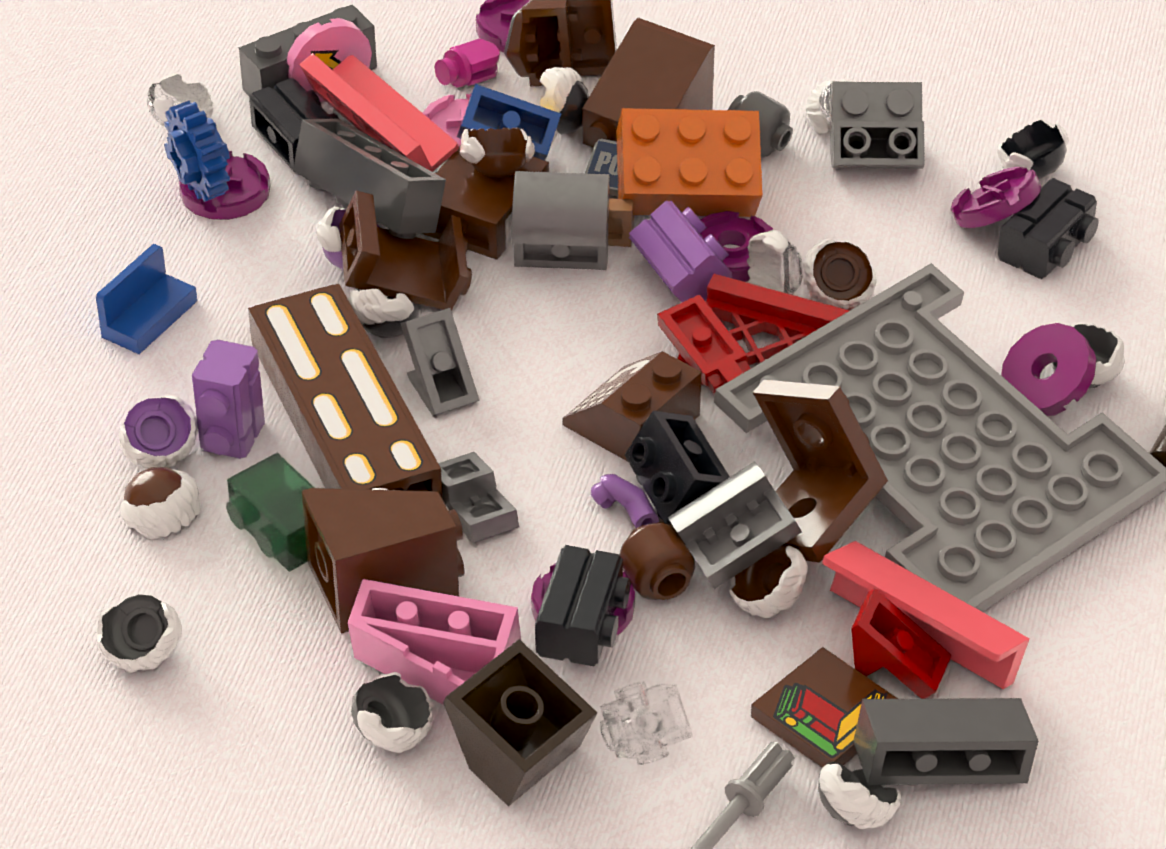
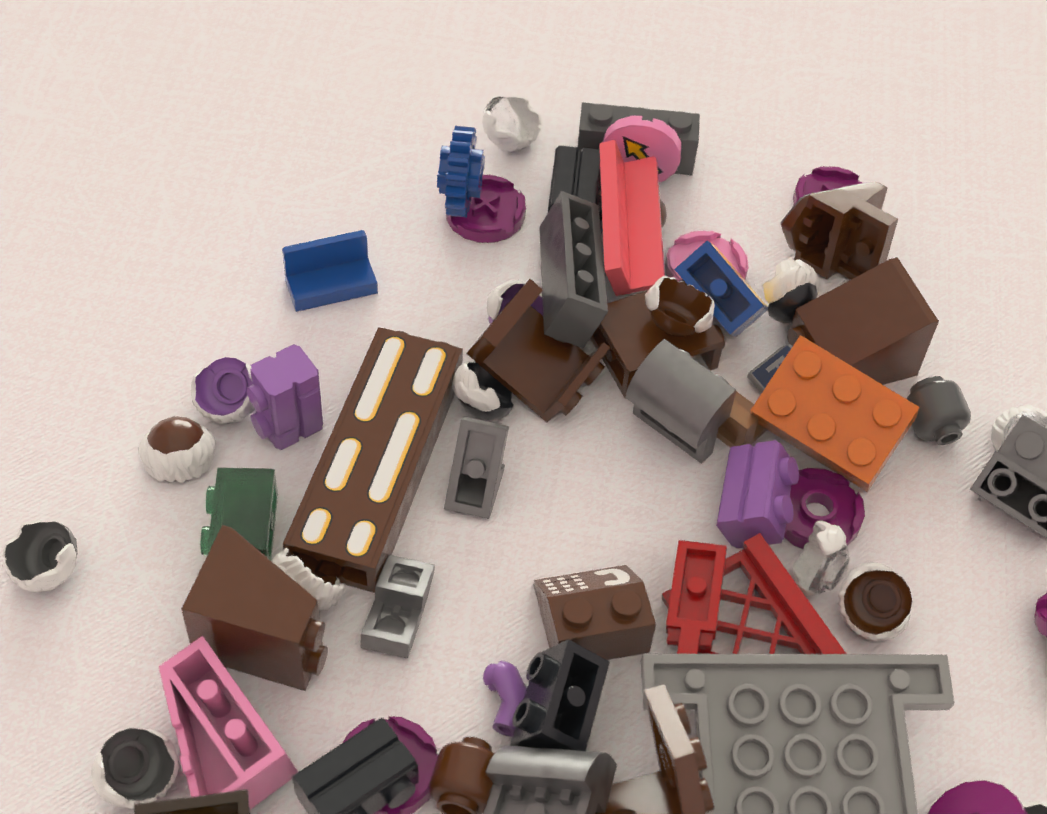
camera: 35 degrees right, 10 degrees up
(468, 63) = (756, 213): dark pink arm -> none

